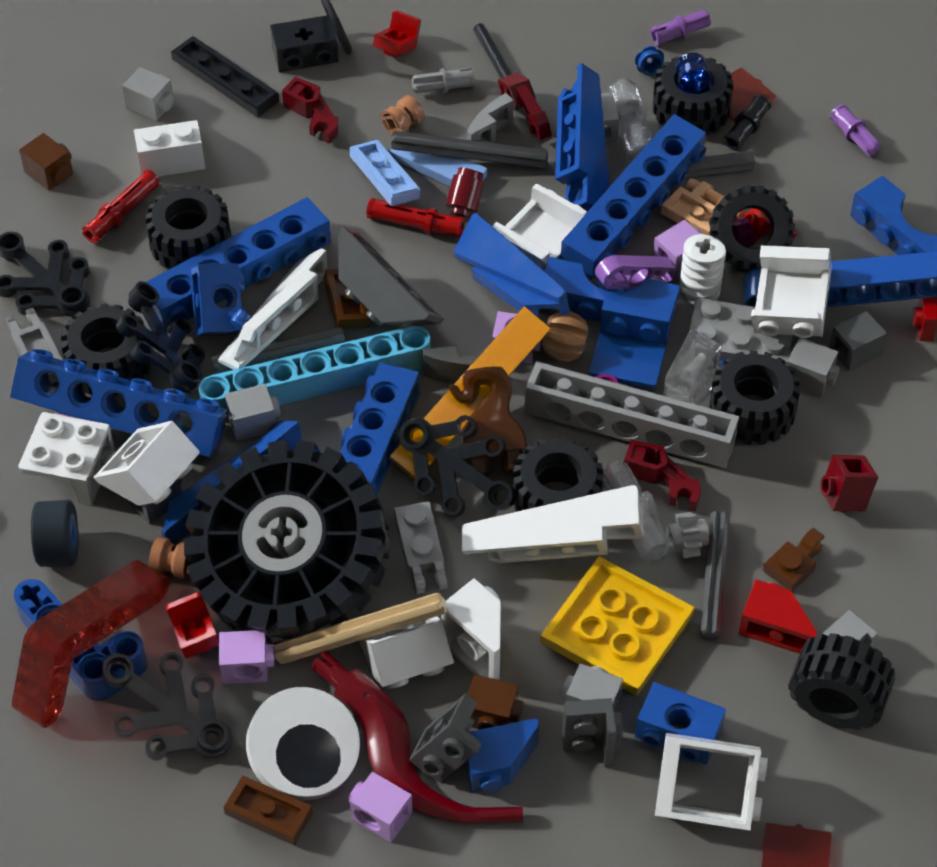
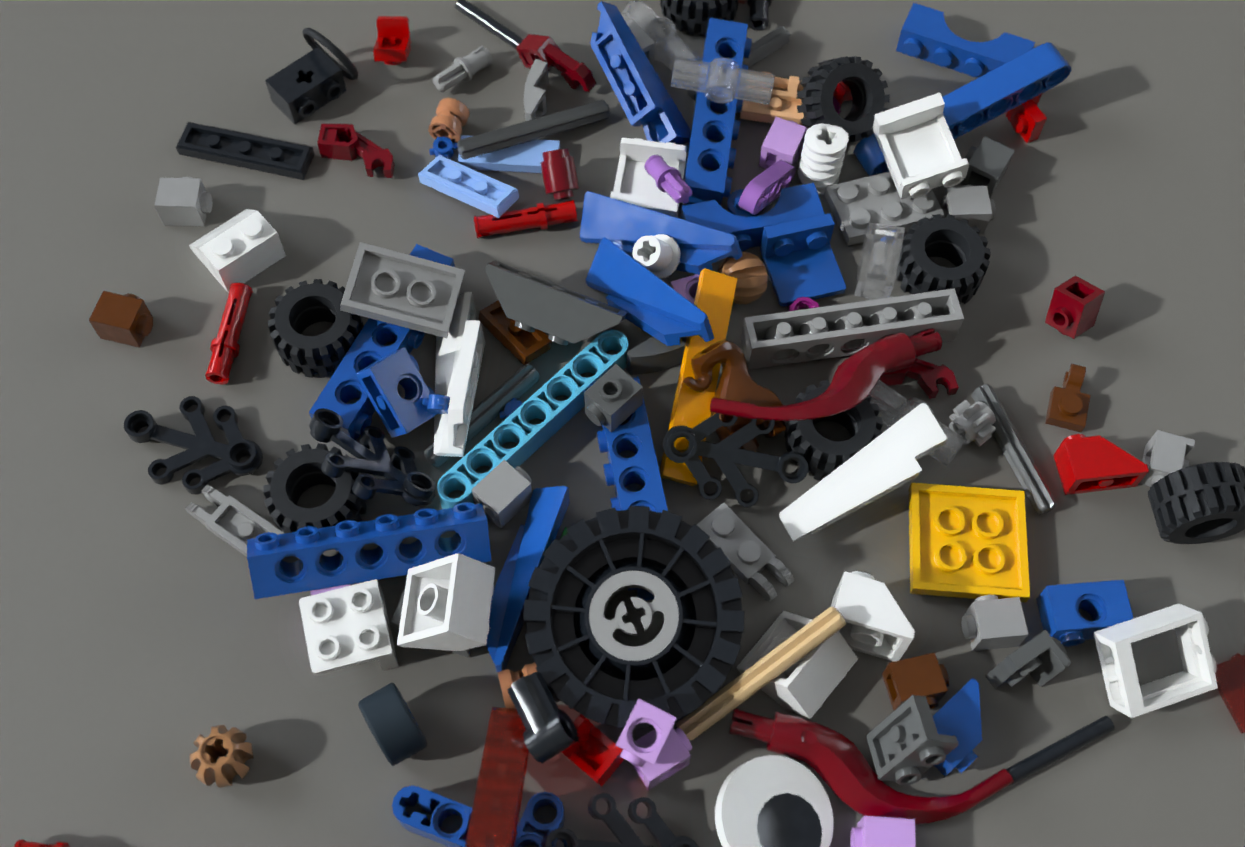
camera: 30 degrees left, 10 degrees up
(165, 582) = (547, 726): none -> black piece
(249, 625) = (659, 719): none -> lavender brick
(268, 223) = (402, 290): none -> light grey plate
(380, 374) = (613, 398): none -> dark grey brick
(384, 135) = (444, 147): none -> blue piece
(463, 311) = (645, 297): none -> blue wedge
(496, 284) = (657, 254): none -> white piece
(552, 231) = (668, 179): none -> medium lavender axle
(583, 818) = (1060, 749): none -> black bar
(637, 443) = (850, 383): none -> dark red animal
(646, 167) = (722, 80): none -> clear piece

